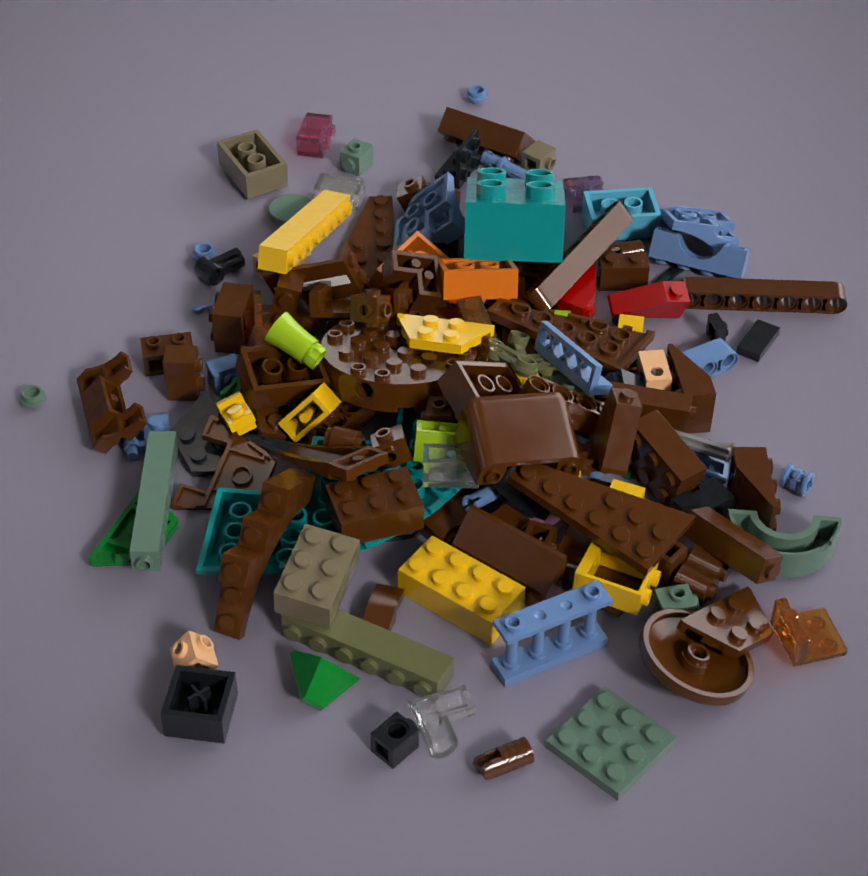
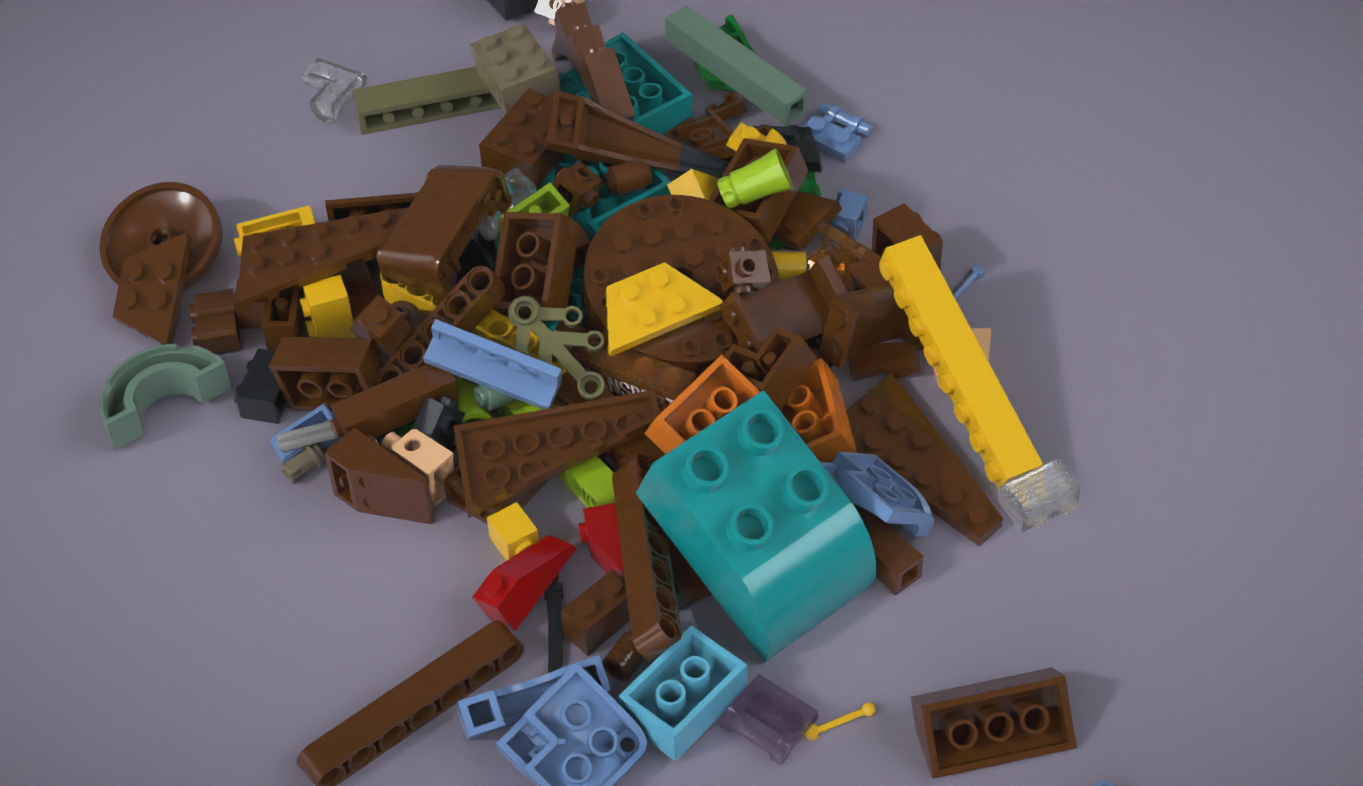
camera: 140 degrees right, 5 degrees up
(32, 396) = (976, 94): sand green plate -> none
(105, 405) = (885, 108): reddish brown bracket -> none
(154, 349) = (928, 193): reddish brown brick -> none
(182, 373) = (872, 170): reddish brown brick -> none
(203, 249) = (1059, 323): medium blue plate -> none
(214, 269) = (1019, 314): black piece -> none
(252, 163) = (1171, 447): dark tan brick -> none
(286, 206) = (1062, 439): sand green tile -> none
(315, 135) = (1181, 556): clear pink brick -> none
(319, 679) = (452, 52): green slope -> none
(356, 157) = (1090, 559): sand green brick -> none
(383, 606) = (464, 129): reddish brown slope -> none
(395, 739) = (353, 51): black brick -> none
(408, 189) = (948, 543): reddish brown brick -> none
(460, 588) = (403, 165): yellow brick -> none
(463, 161) = (964, 640): black bracket -> none
(504, 758) = (257, 97): reddish brown hinge -> none
(512, 170) = (897, 688): medium blue pin -> none
(539, 156) = (885, 728): dark tan brick -> none
(557, 648) = (289, 148): medium blue fence -> none
(610, 742) = (192, 156): sand green plate -> none
(675, 597) = (216, 274): sand green brick -> none
(713, 356) = (404, 554): medium blue beam -> none
(716, 327) = (422, 608): black plate -> none
(734, 545) = (169, 325): reddish brown brick -> none
(753, 485) = (221, 414): reddish brown slope -> none
(758, 340) = (370, 642): black tile -> none
(788, 475) = (194, 479): medium blue bush -> none
(807, 634) = (83, 331): clear orange bracket -> none

